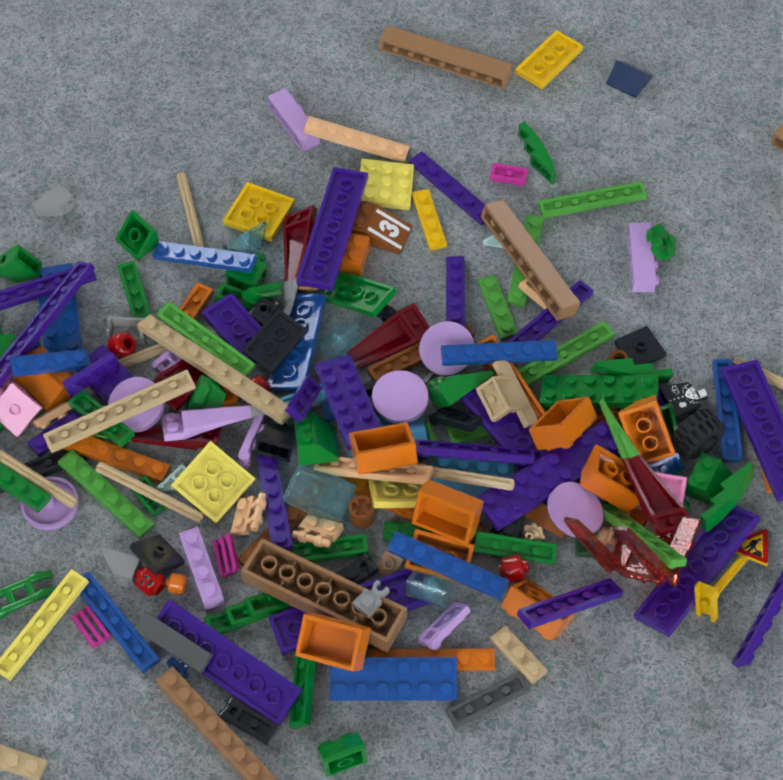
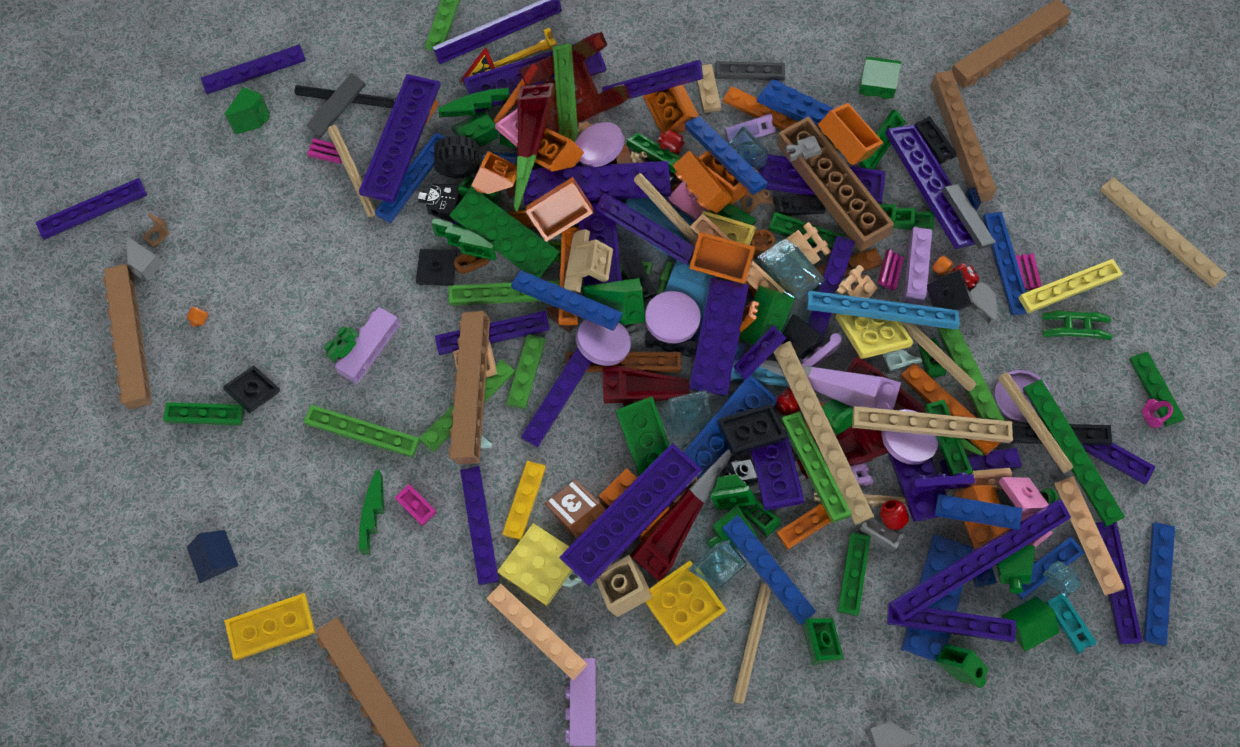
camera: 150 degrees left, 10 degrees up
(212, 499) = (883, 310): none -> dark azure plate
(307, 188) = (623, 586): none -> tan brick
(333, 431) = (749, 315): none -> orange tile
(695, 512) = (509, 104): none -> orange tile
(703, 183) = (251, 389): none -> black plate
(722, 152) = (203, 413): none -> green plate

